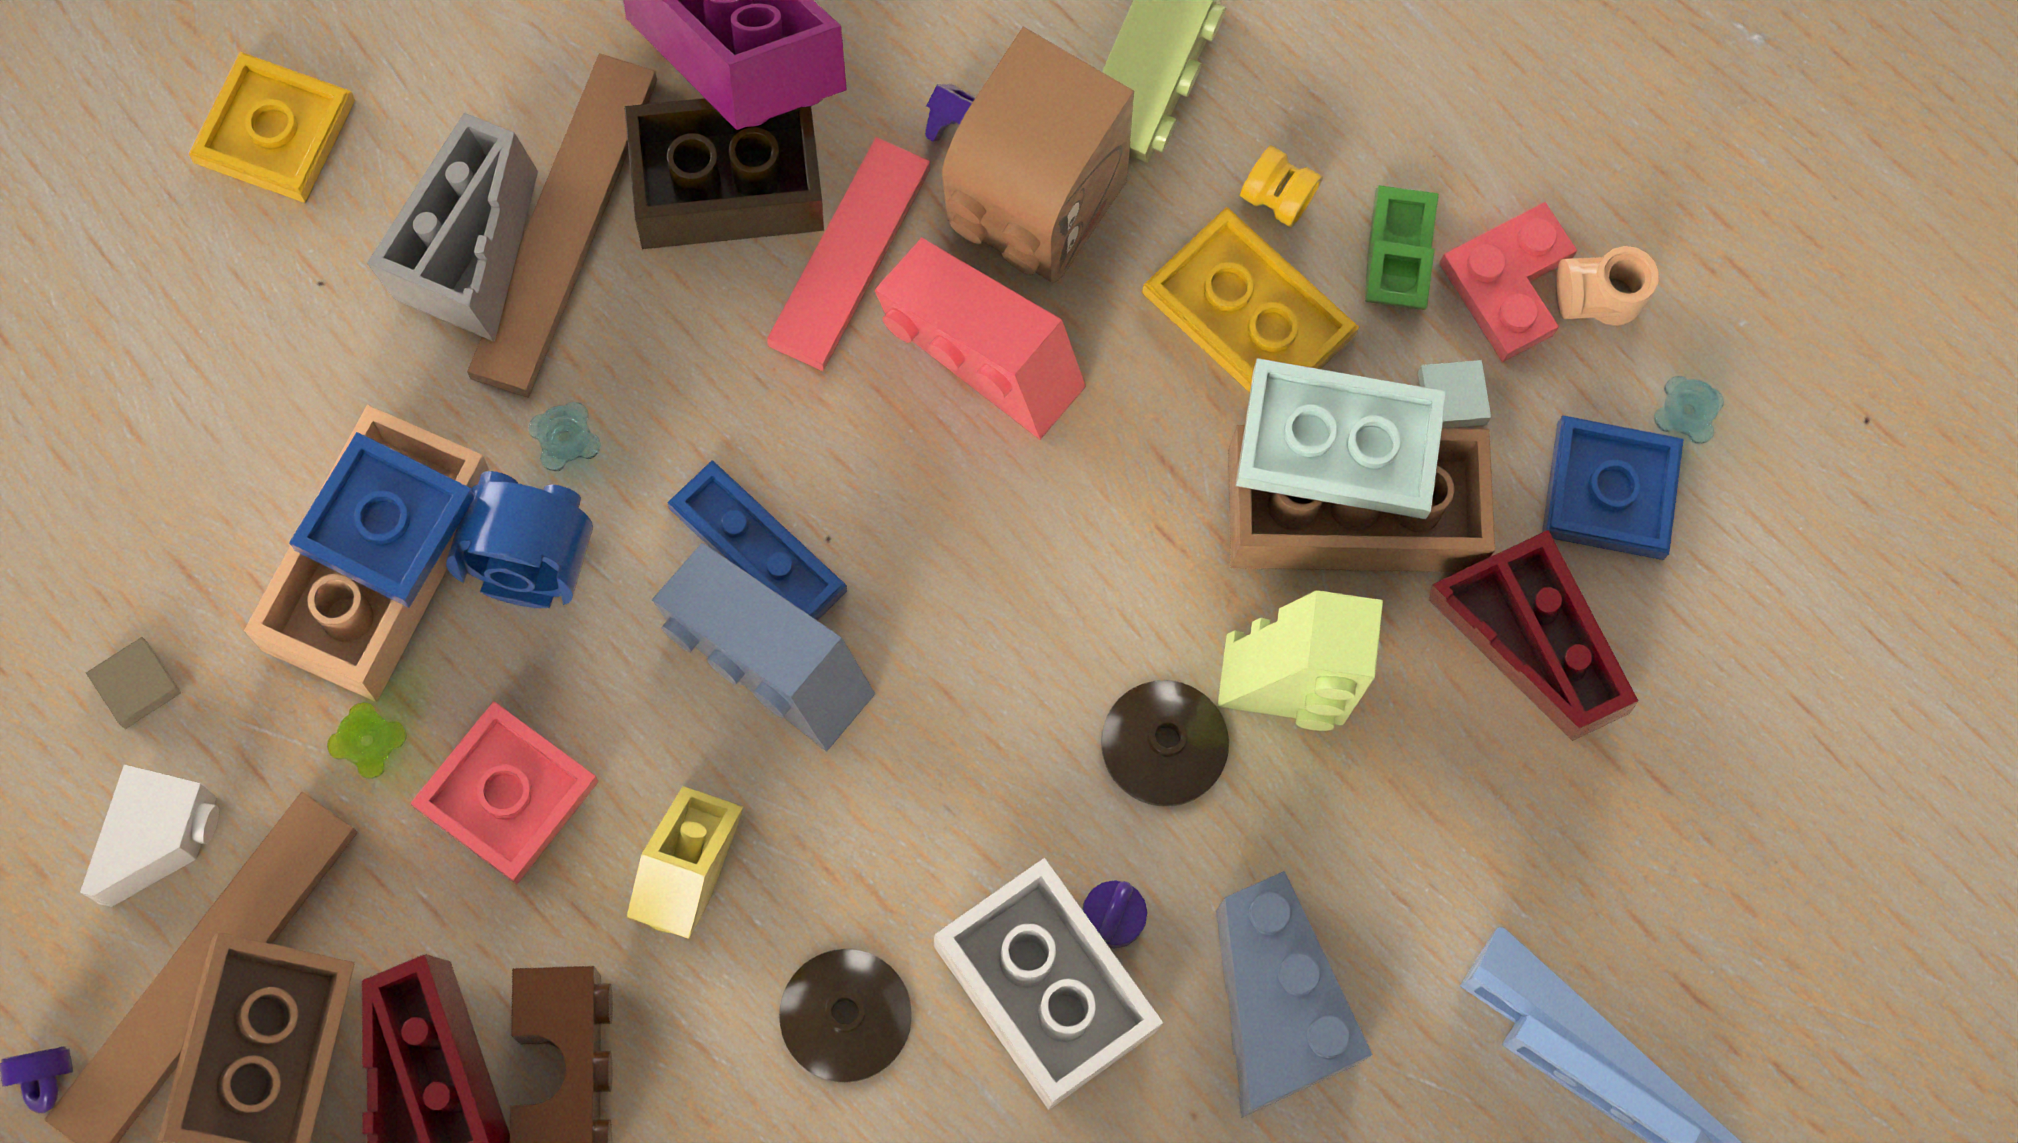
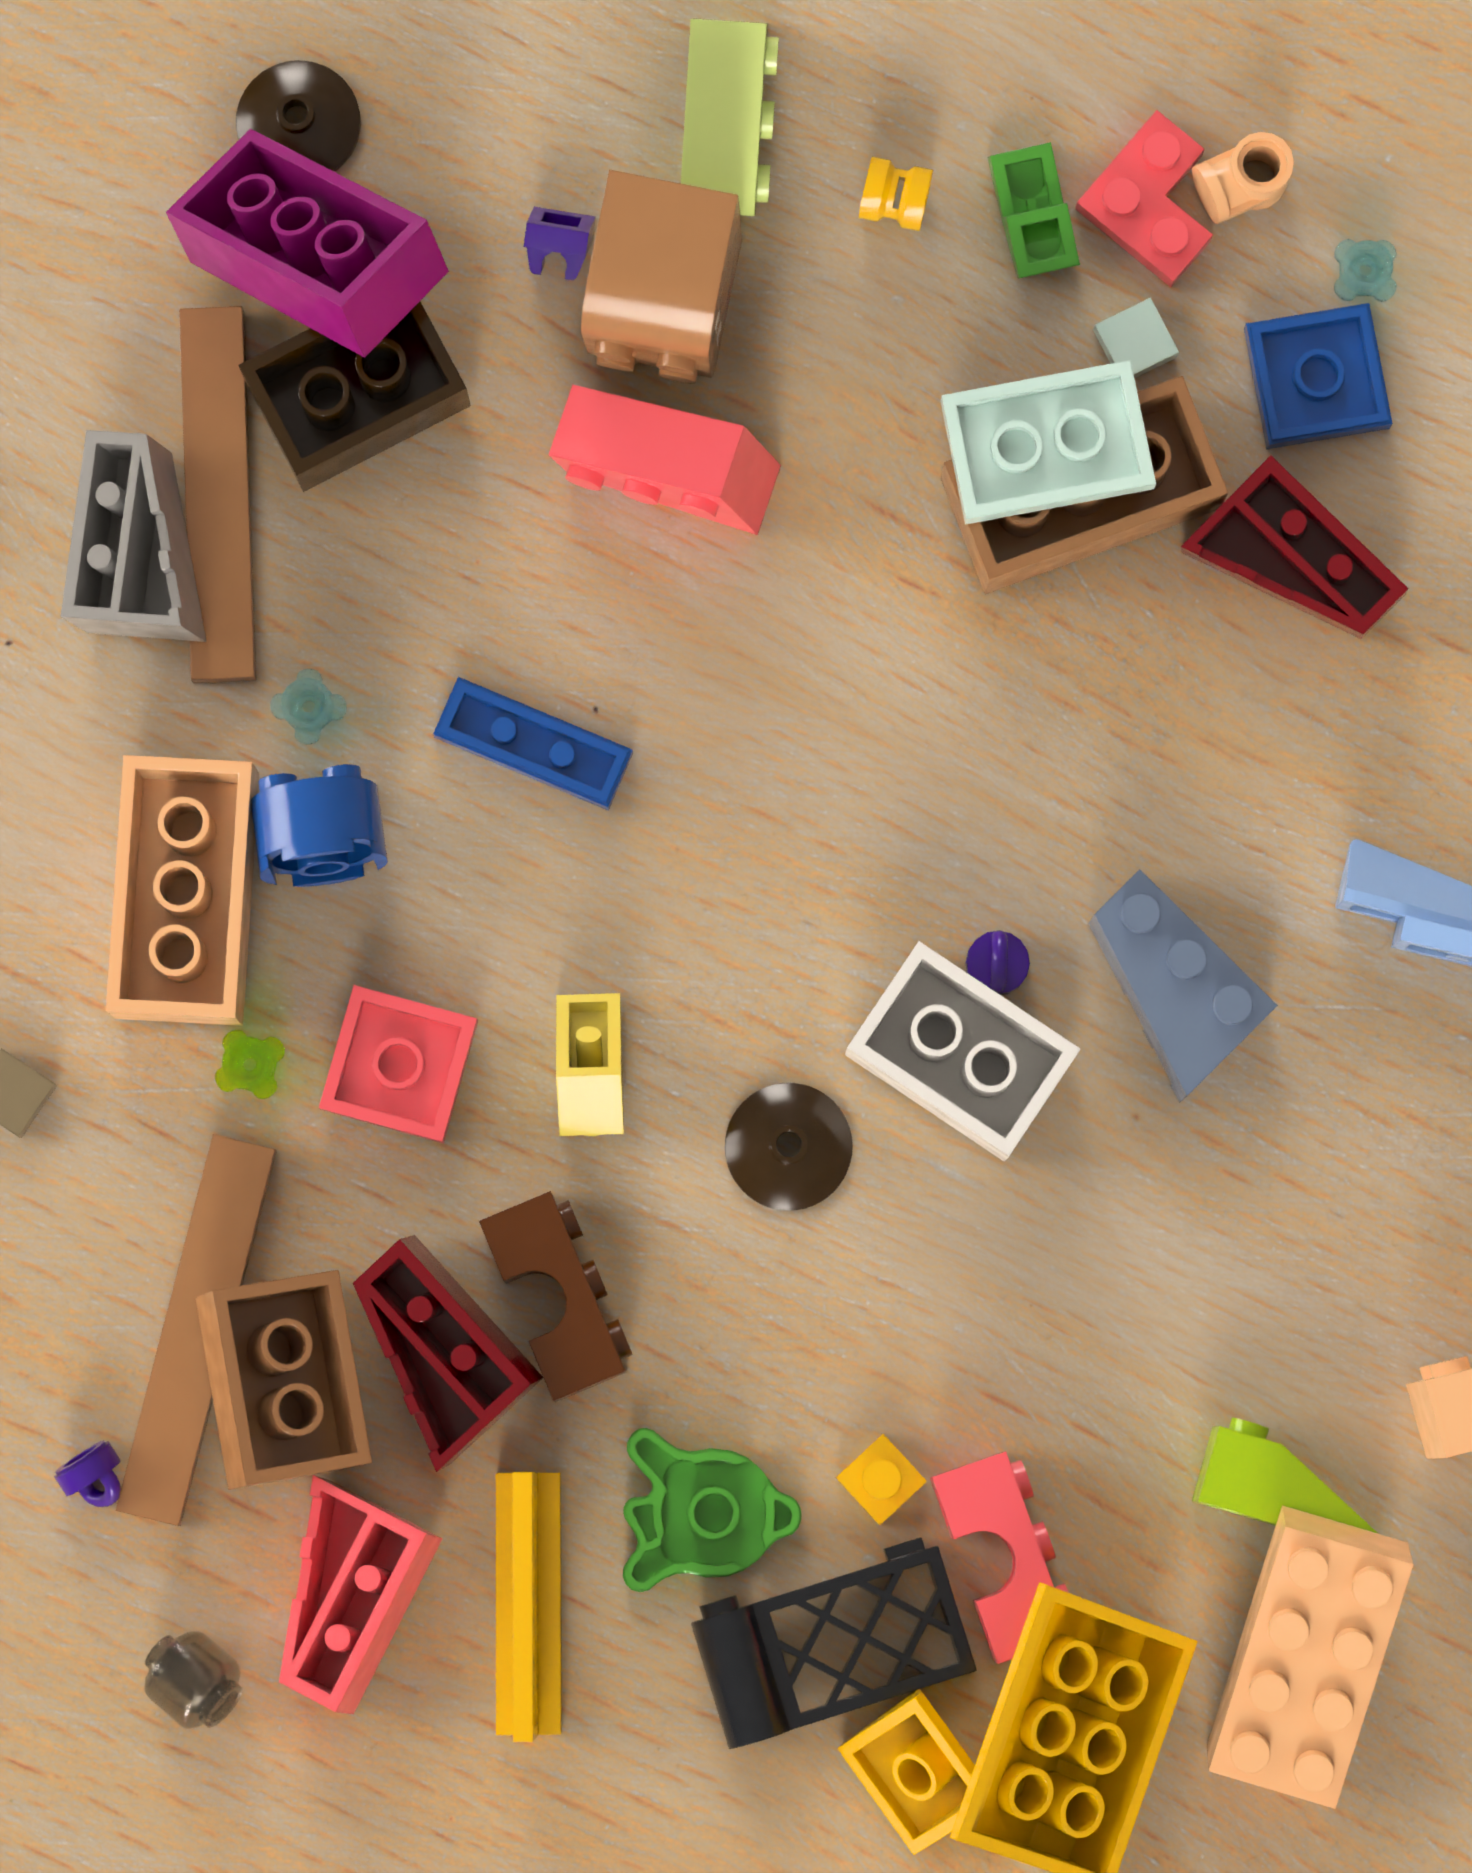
camera: 15 degrees left, 10 degrees up
(148, 833) = (93, 1223): white slope -> none
(382, 519) = (191, 860): blue plate -> none
(765, 645) = (580, 837): sand blue wedge -> none
(848, 254) = (504, 419): coral tile -> none
(1161, 773) = (979, 816): dark brown dish -> none
(1247, 302) = (907, 325): yellow tile -> none
(1306, 663) = (1094, 665): yellowish green wedge -> none

